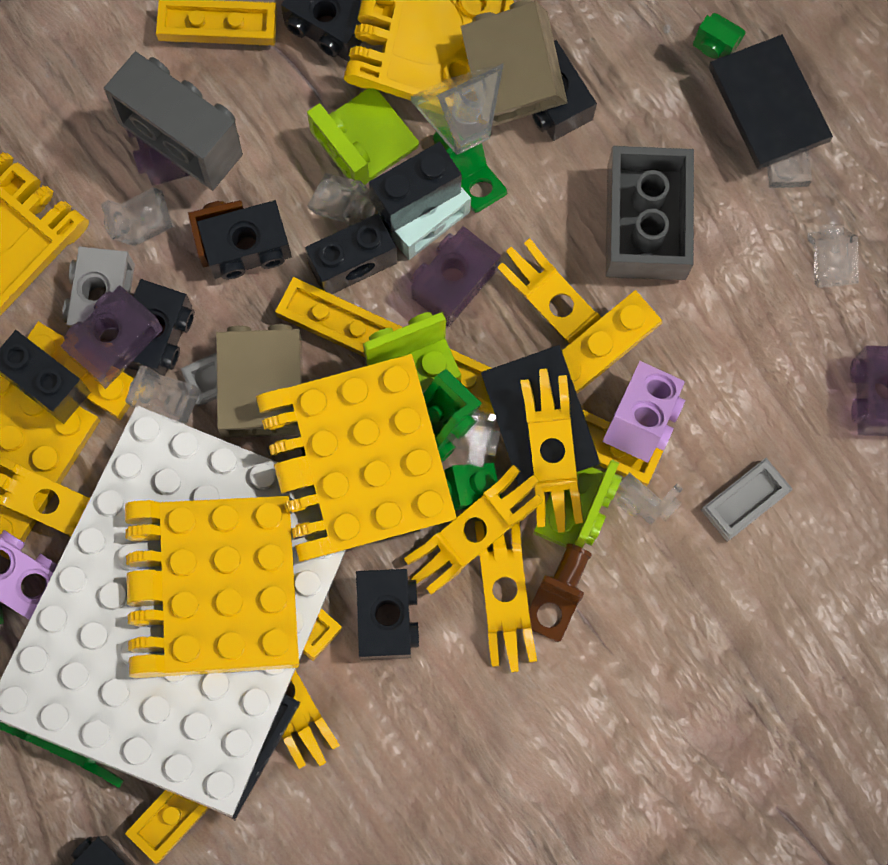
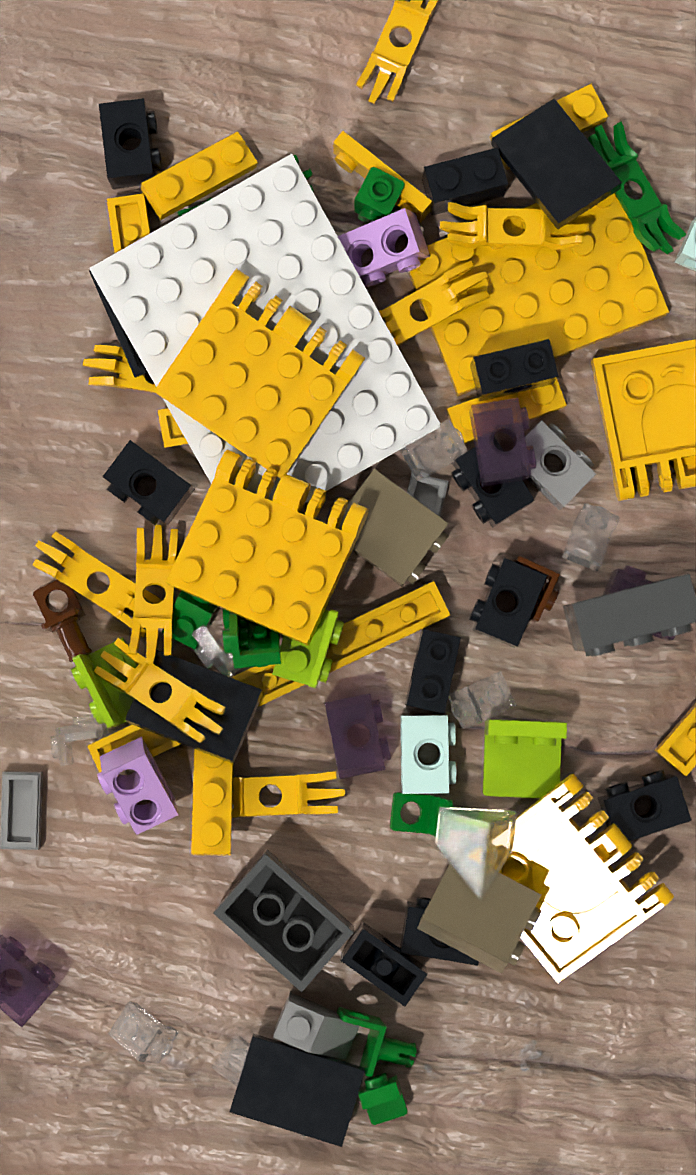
camera: 130 degrees right, 10 degrees up
(70, 797) = (199, 175): none -> yellow plate
(415, 186) = (438, 754): black brick -> none
(617, 108) = (383, 964): none -> black brick
(681, 75) = (377, 1045): none -> green bracket
(712, 132) = (314, 1028): none -> light grey slope

